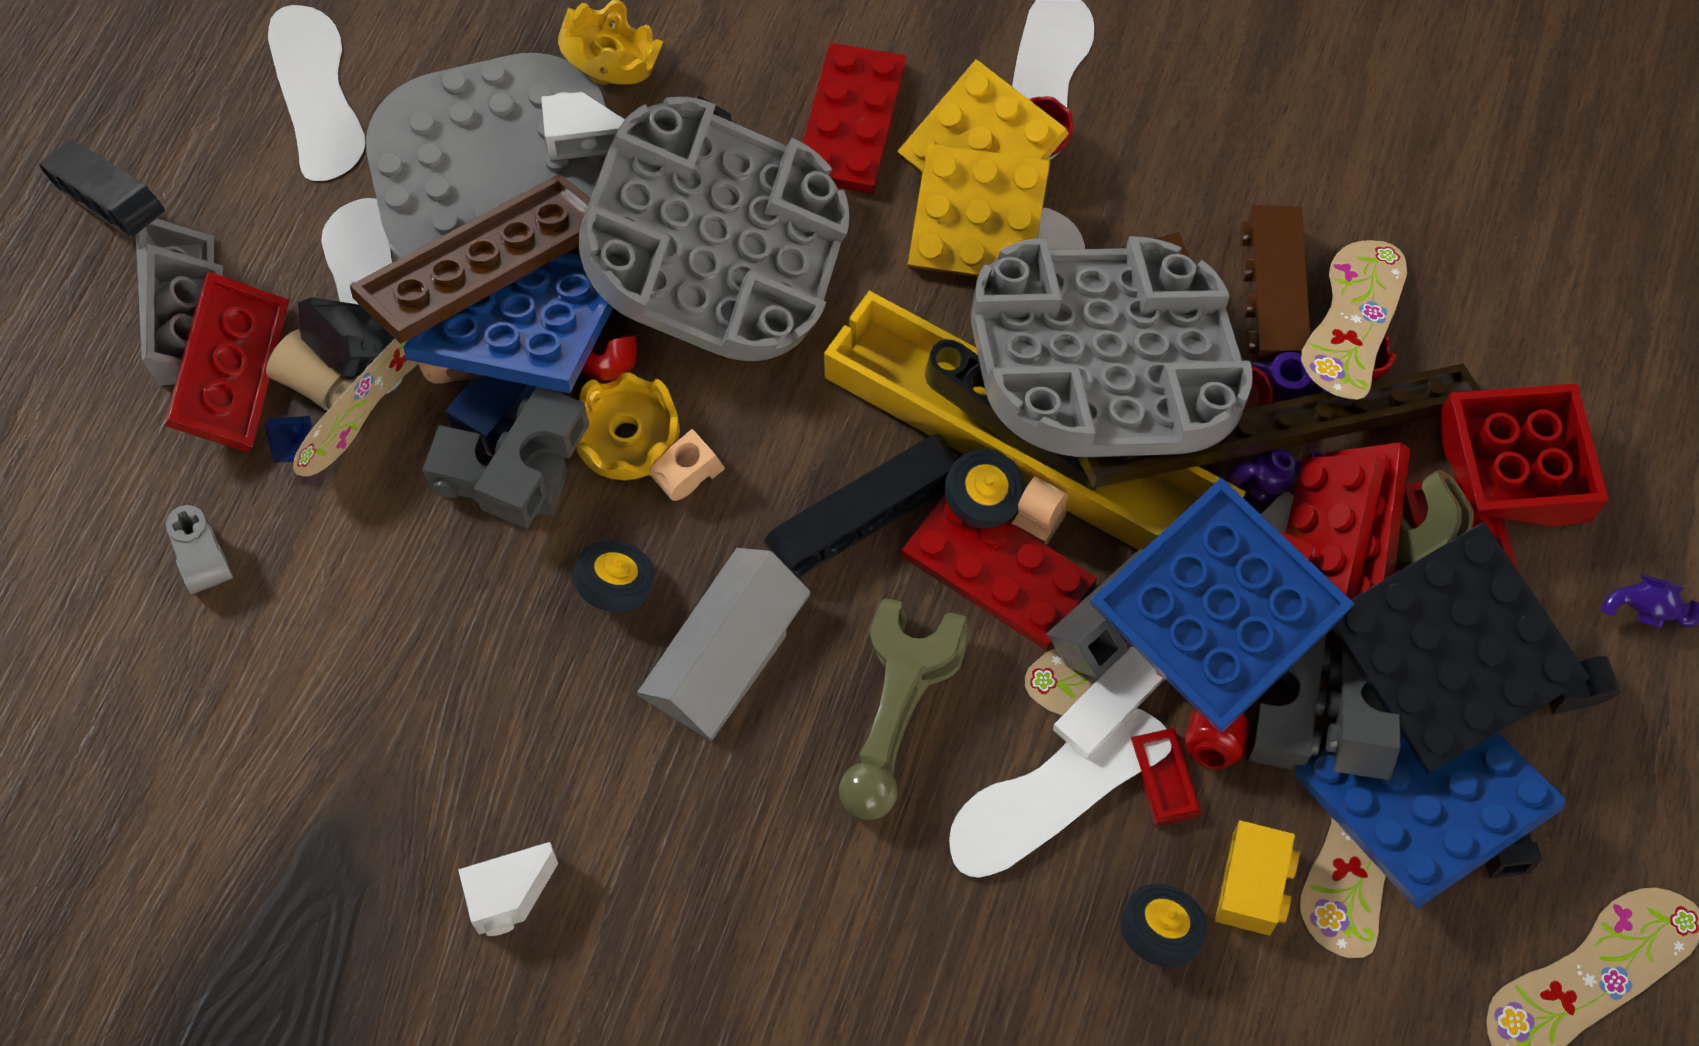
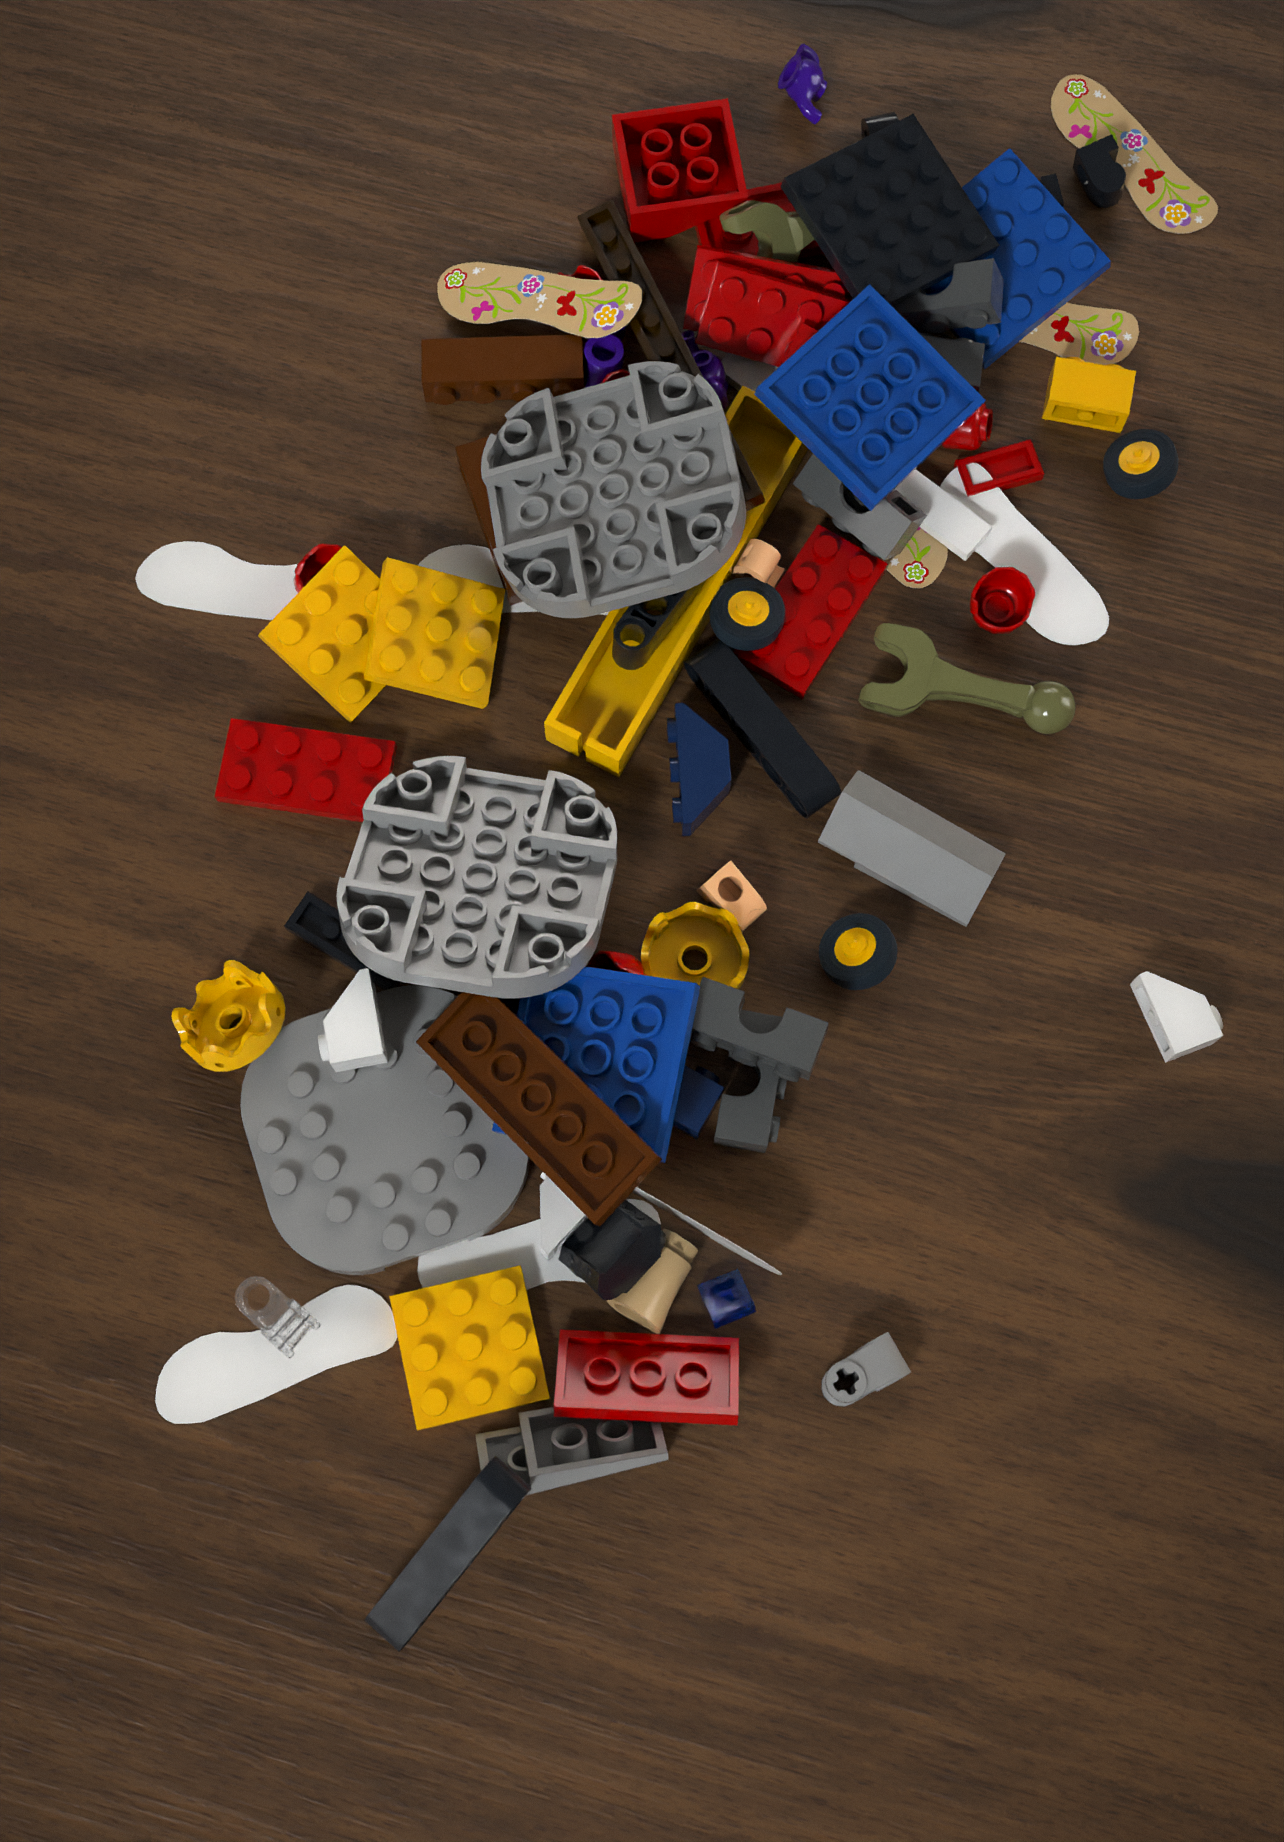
camera: 95 degrees left, 10 degrees up
(290, 231) = (469, 1347): none -> yellow plate
(344, 78) = (277, 1315): none -> clear piece
(824, 443) = (700, 768): none -> dark blue slope
(995, 752) = (1002, 600): none -> red hair
(1557, 923) = (1099, 172): none -> black leg

